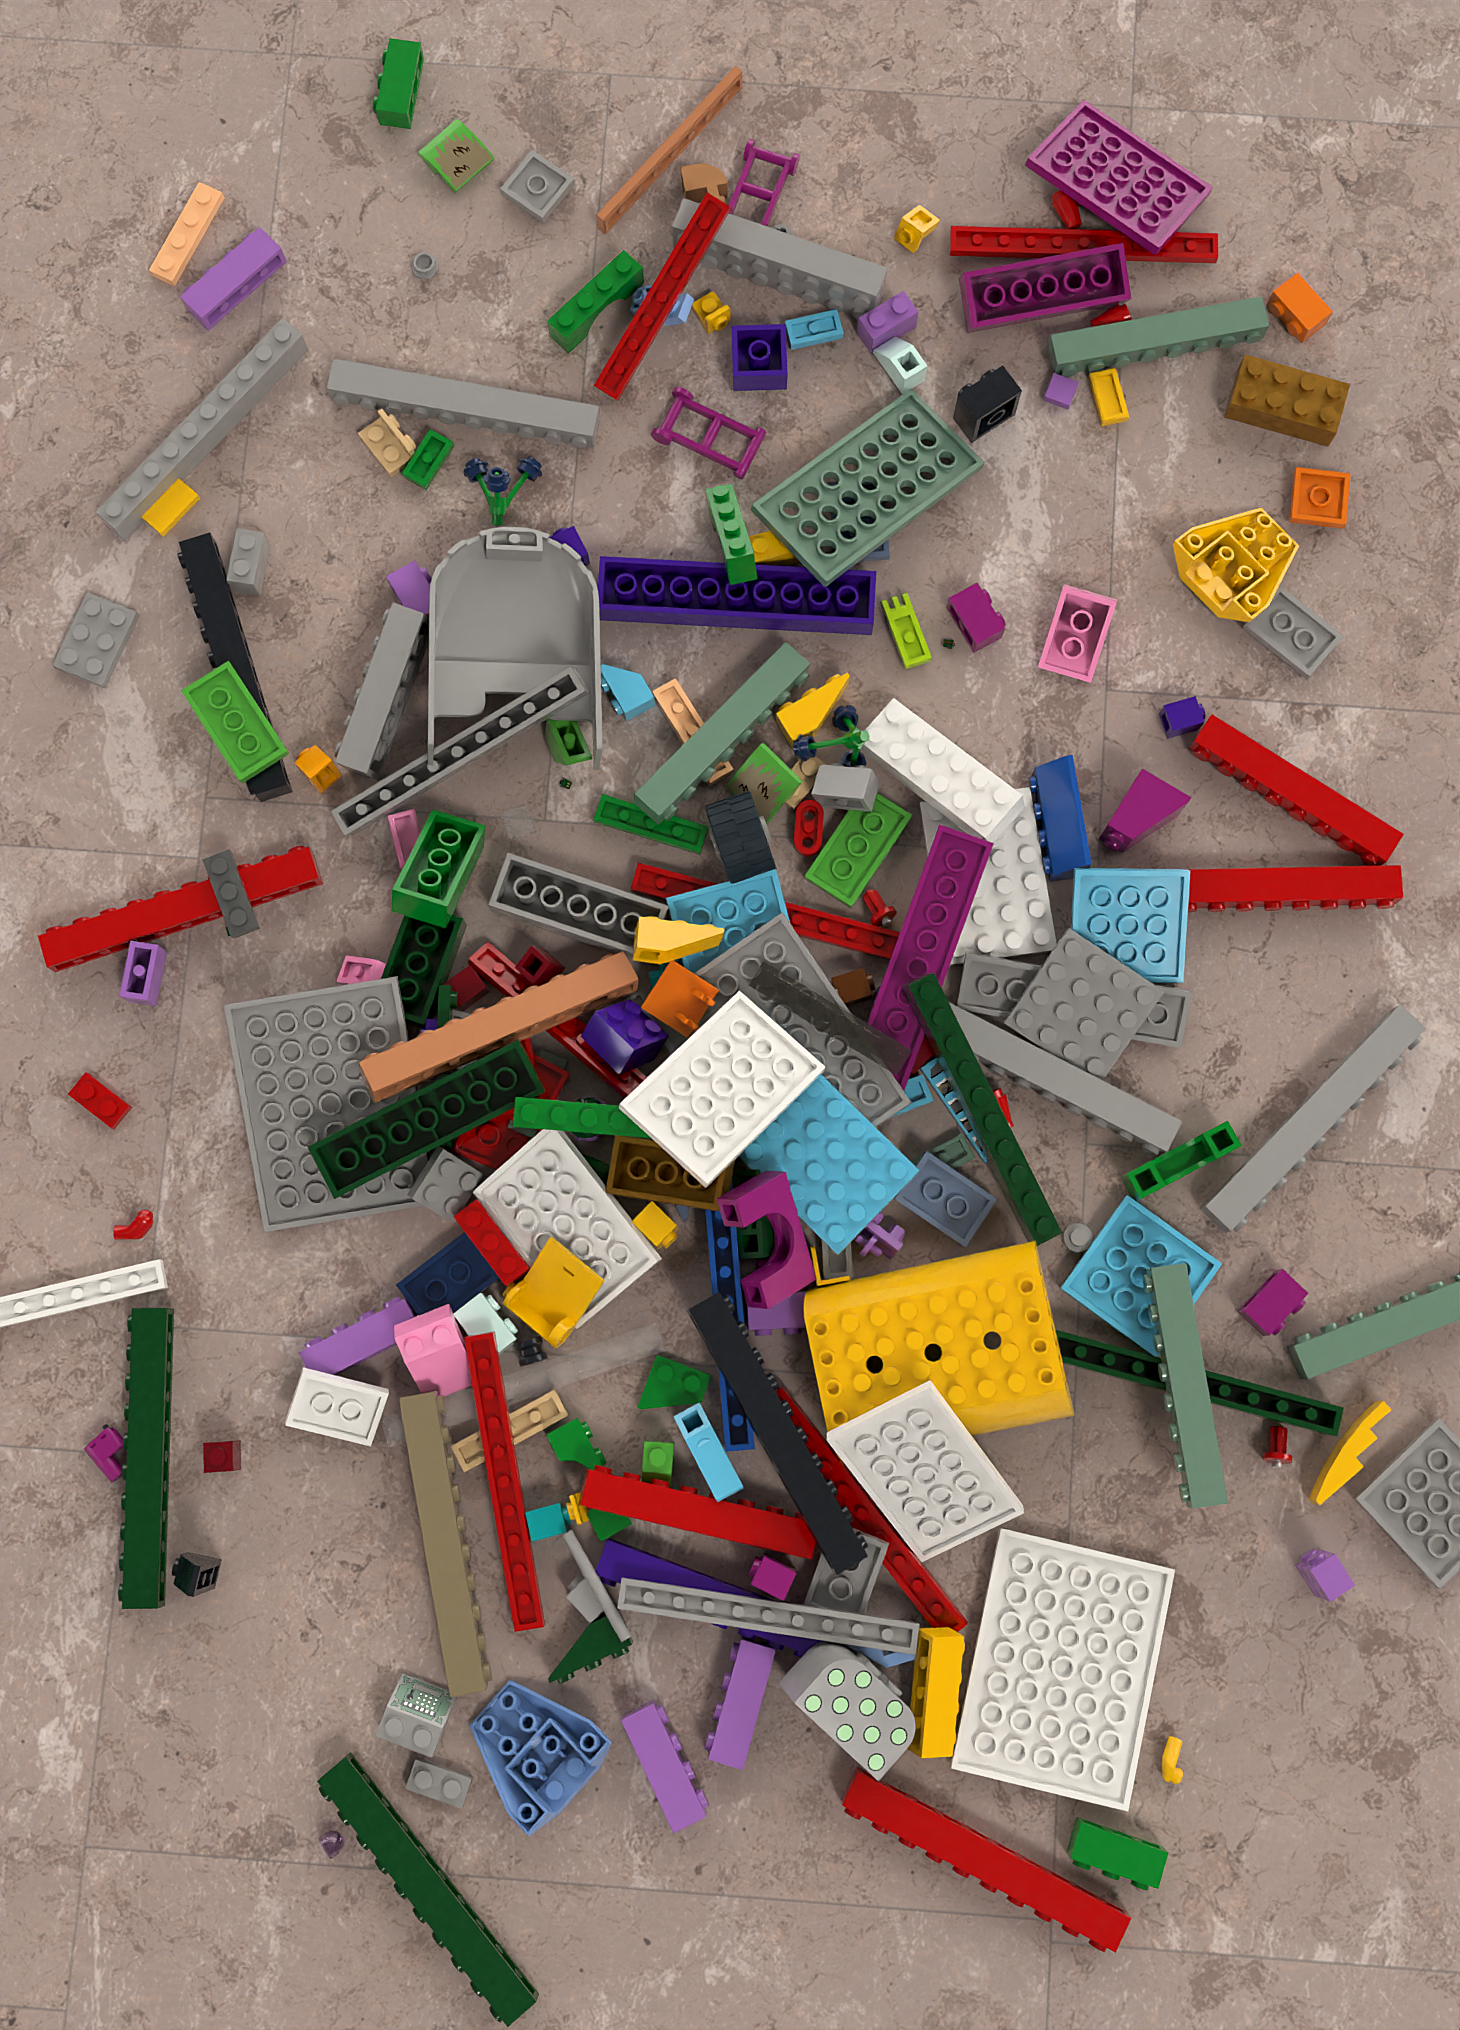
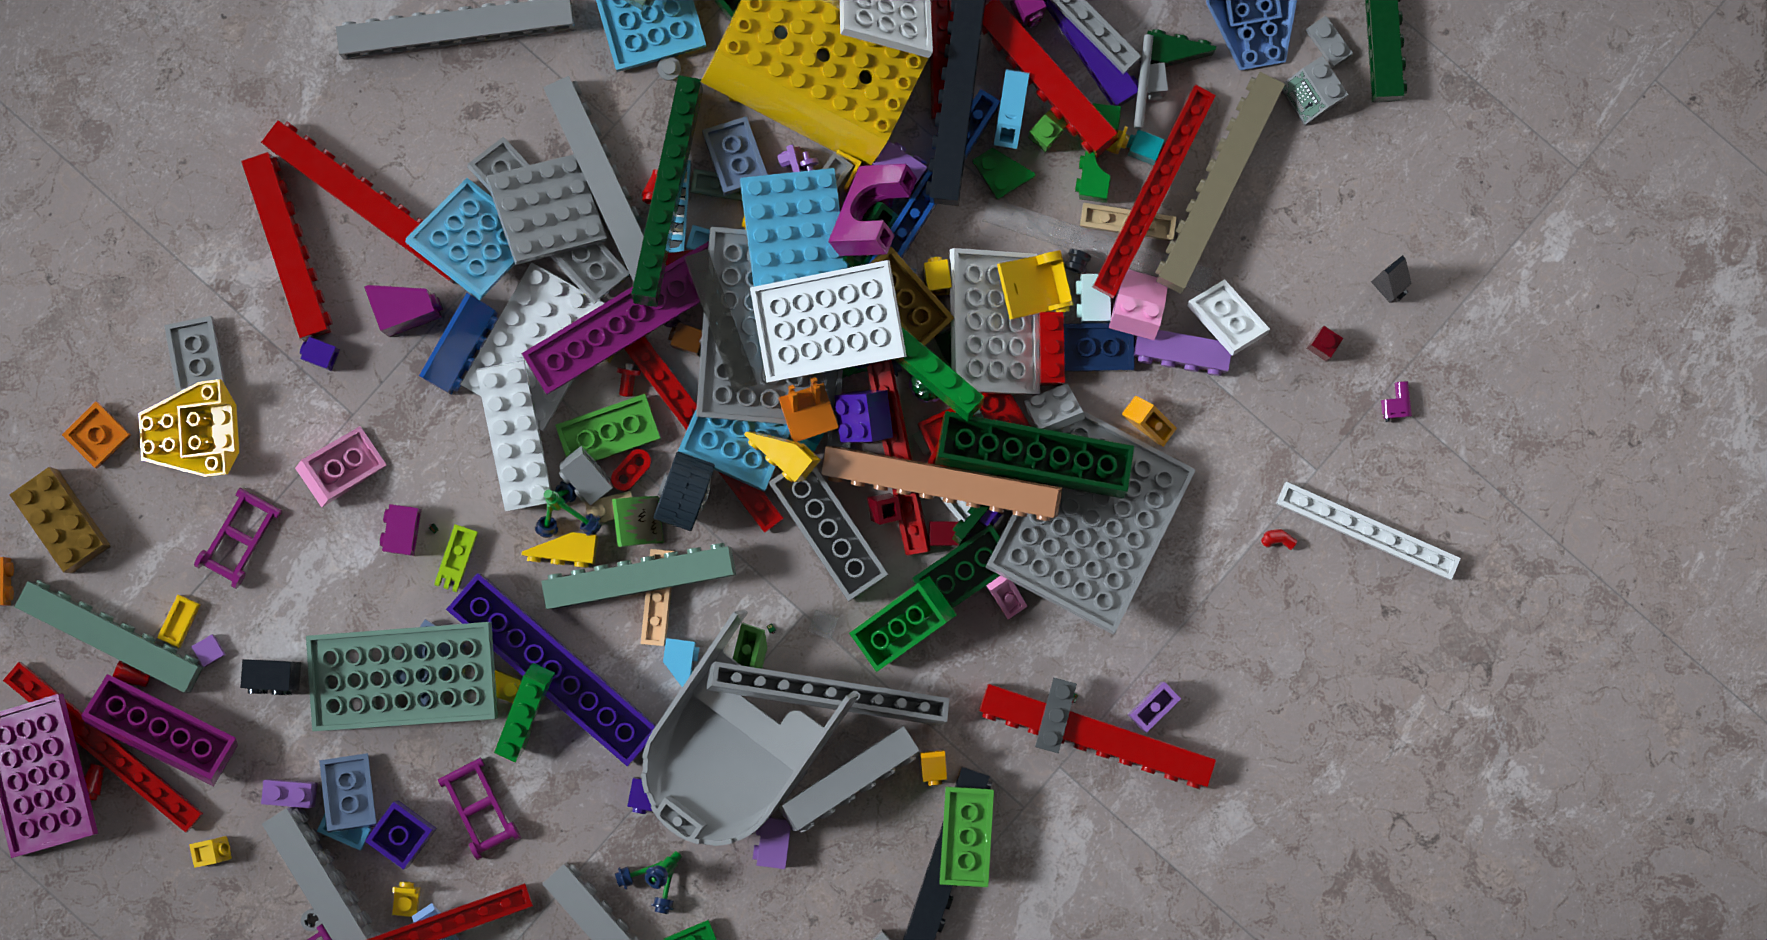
camera: 150 degrees left, 5 degrees up
(100, 1100) = (1243, 644): red plate -> none
(147, 1458) = (1373, 379): dark green brick -> none
(332, 1843) = (1421, 55): clear purple hinge -> none
(345, 1246) = (1149, 420): none -> light orange slope
(405, 833) = (907, 670): bright pink tile -> none
(632, 820) = (746, 568): green plate -> none
(835, 358) = (347, 793): none -> sand blue plate
(901, 363) = (304, 756): light aqua slope -> none
(1132, 465) = (237, 576): none -> magenta piece
(1181, 1161) = (583, 68): green arch -> none

